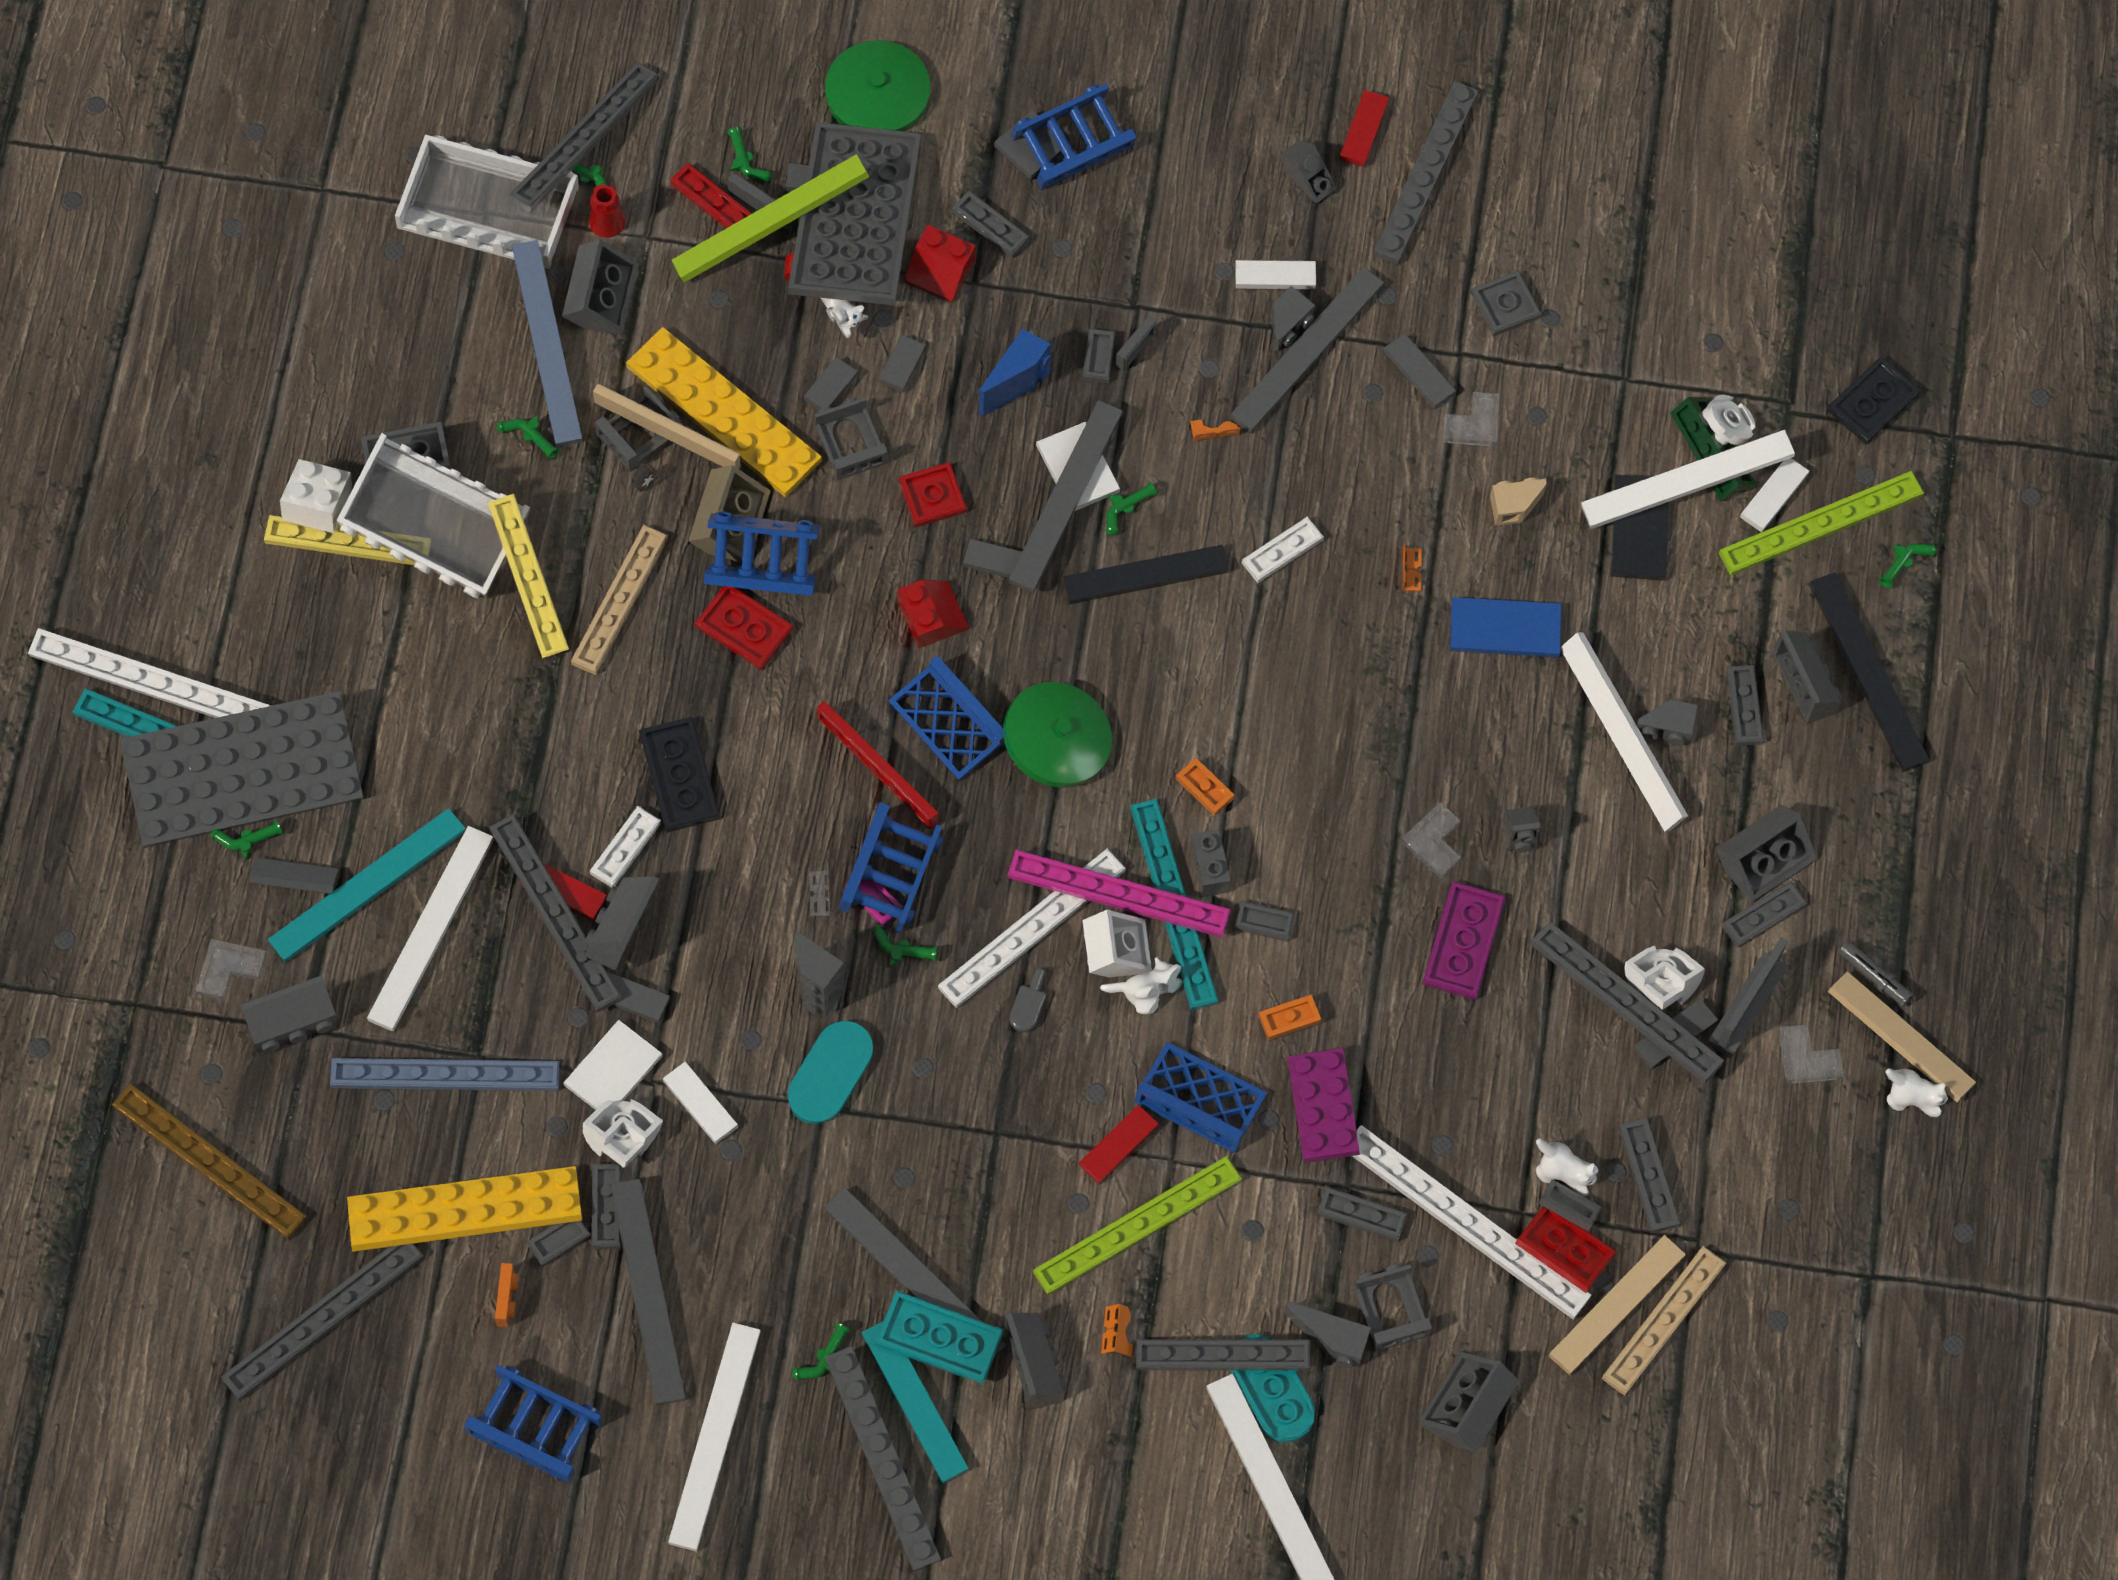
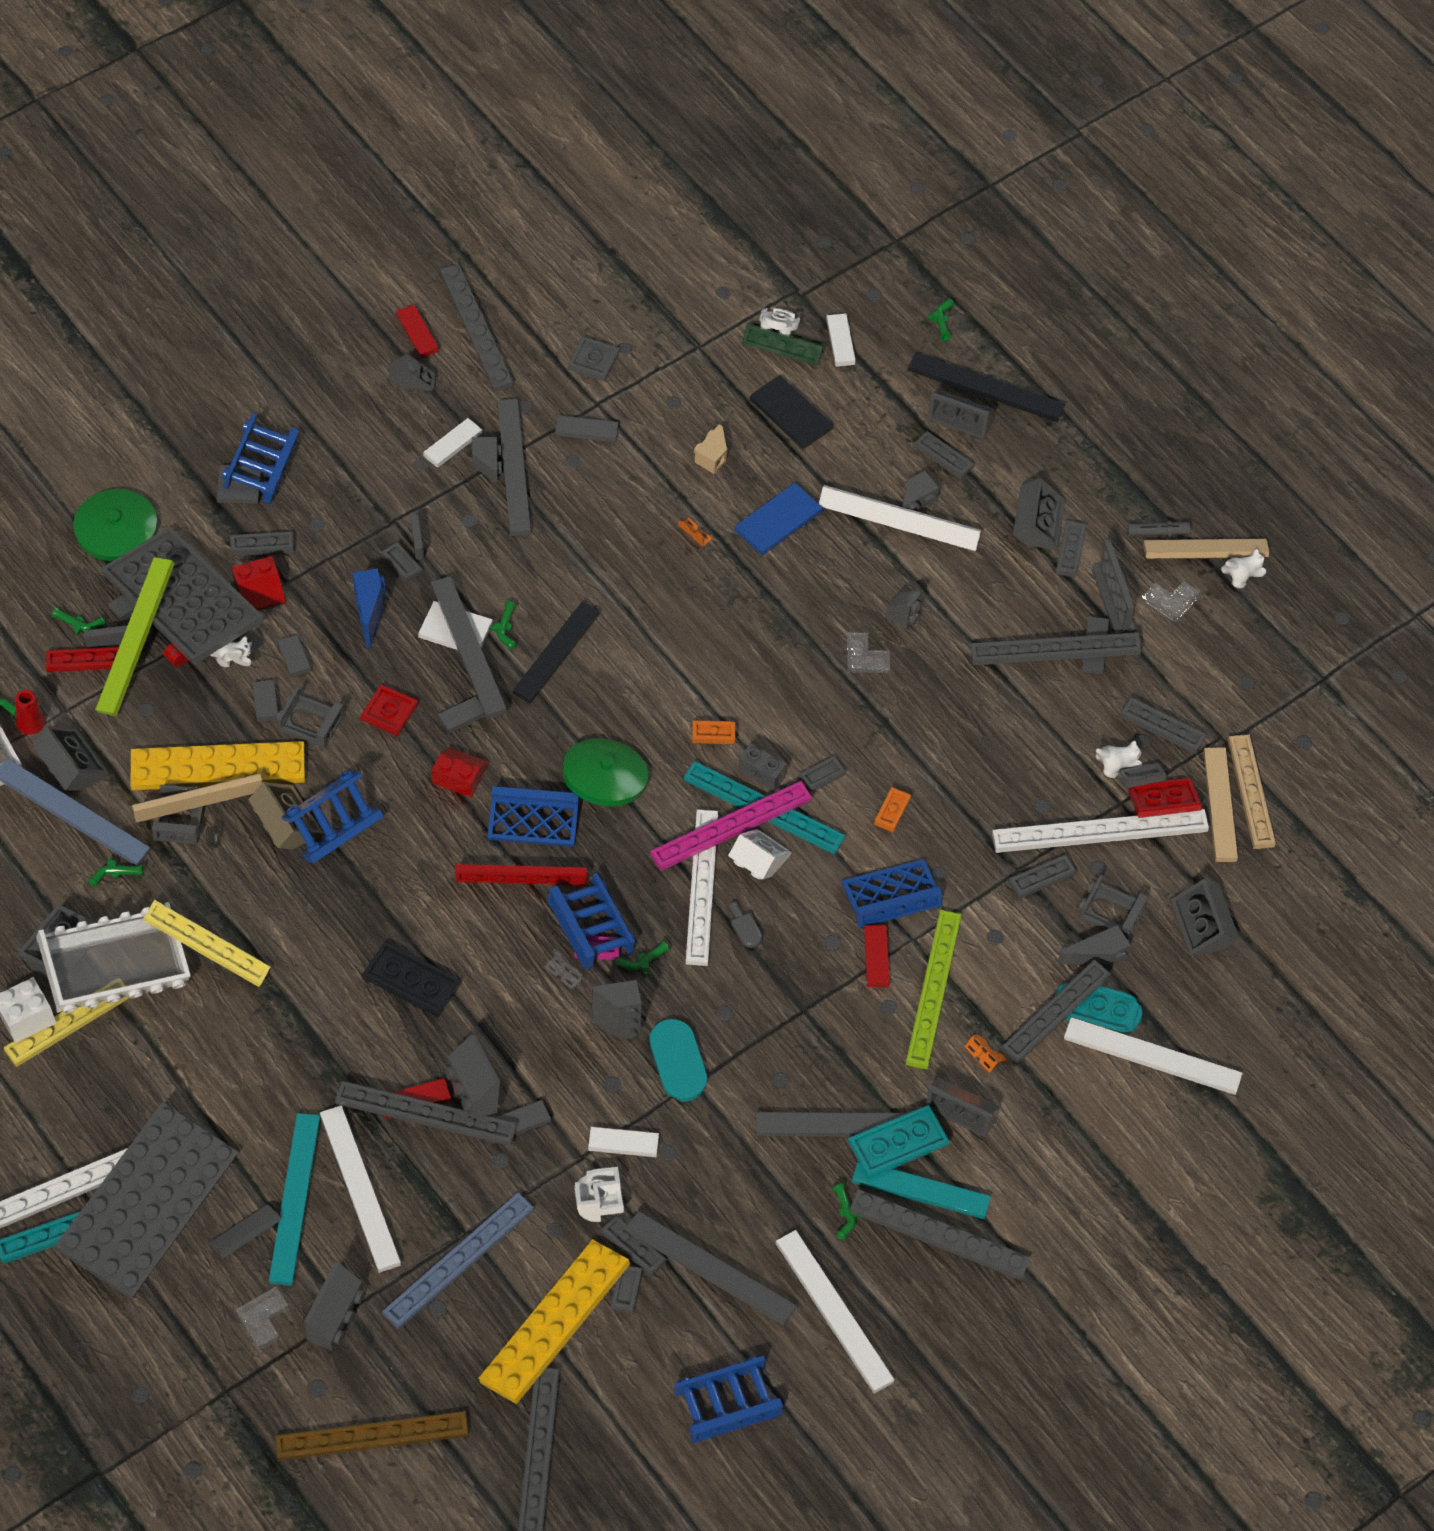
camera: 45 degrees left, 10 degrees down
(247, 838) = (192, 1237): green piece -> none
(507, 1284) = (639, 1351): orange plate -> none
(613, 1067) = (553, 1168): white tile -> none
(619, 600) = (270, 916): tan tile -> none
(625, 847) = (424, 1044): white tile -> none
(744, 626) = (359, 868): red tile -> none
(1145, 988) = (801, 861): white animal -> none
(1203, 432) = (503, 555): orange piece -> none
(1282, 549) = (616, 578): white tile -> none
(1323, 1105) = (962, 837): magenta plate -> none
(1463, 940) = (936, 693): magenta tile -> none
(1477, 429) = (648, 432): clear plate -> none
(1664, 975) = (1059, 618): white brick -> none
(1687, 479) = (792, 365): white tile -> none
(1821, 523) = (879, 335): lime tile -> none
(1873, 400) = (837, 254): black tile -> none

